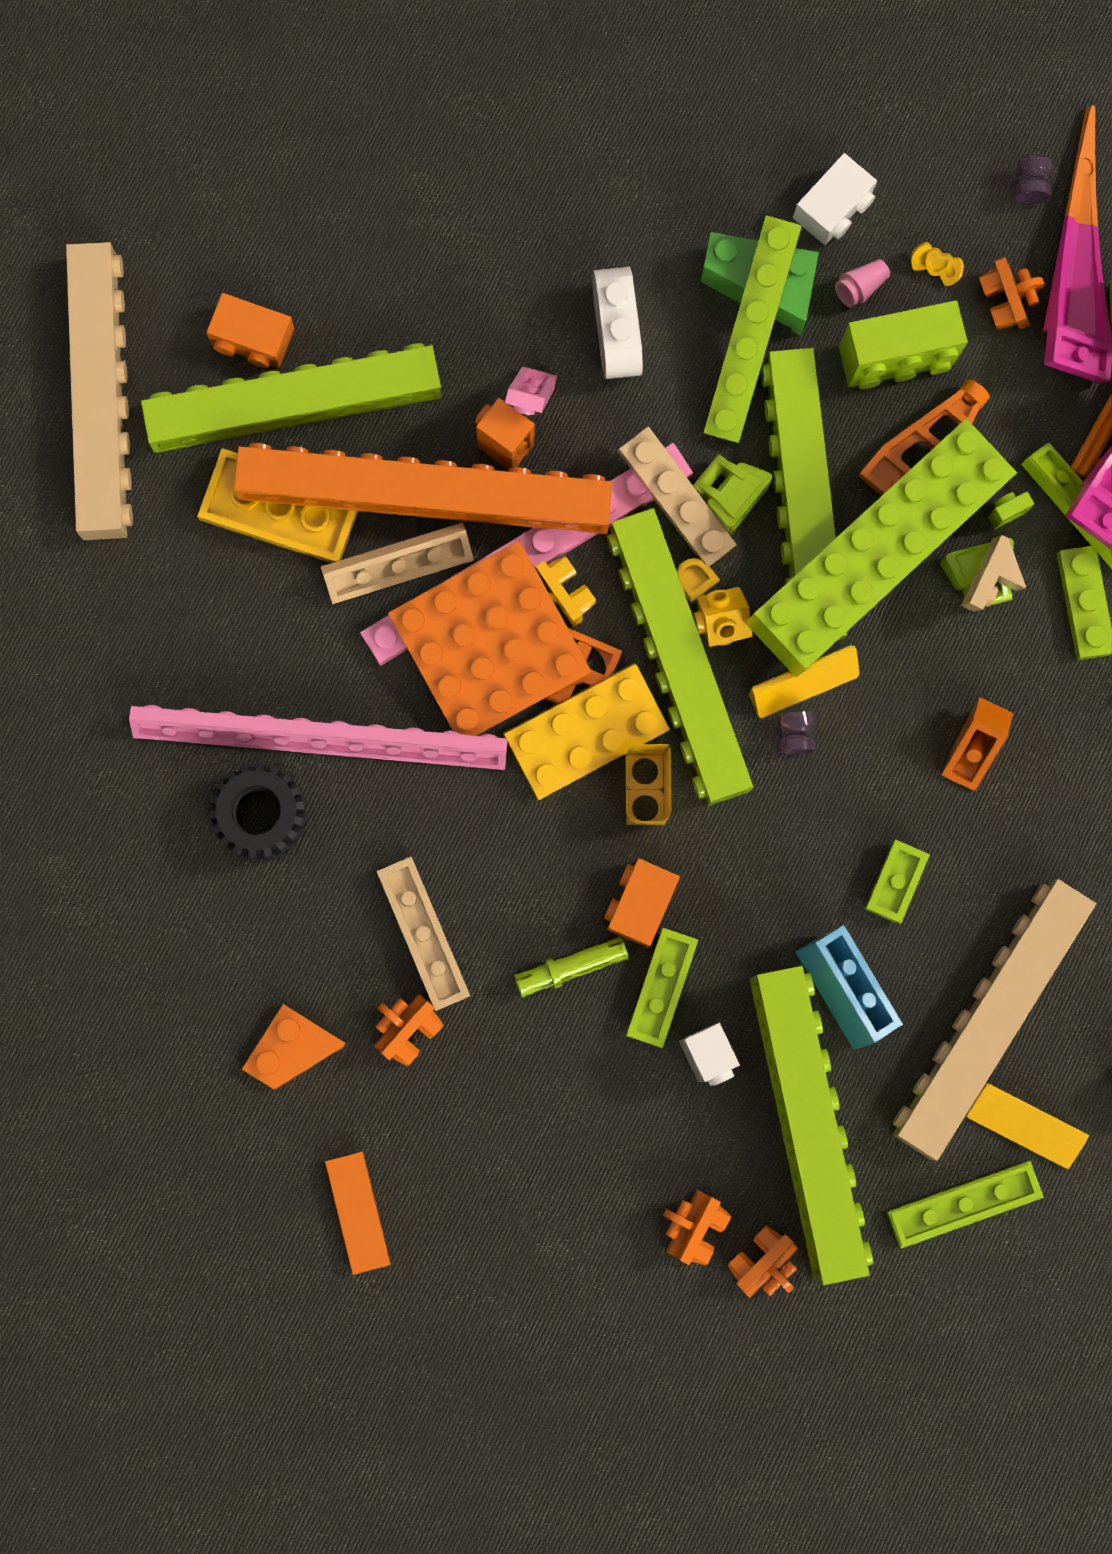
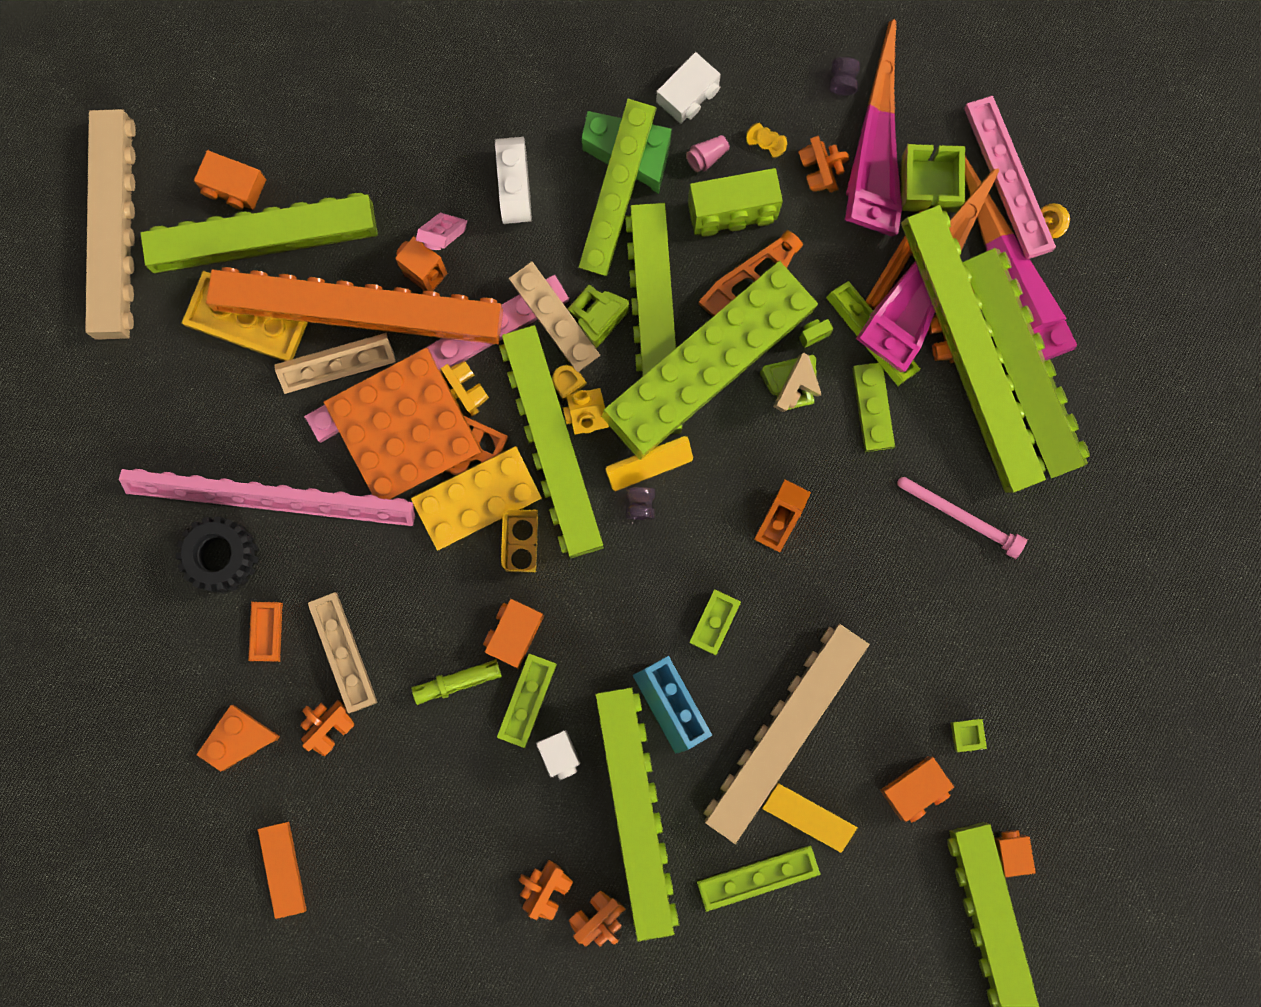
camera: 10 degrees right, 0 degrees up
(322, 910) = (265, 631): none -> orange tile

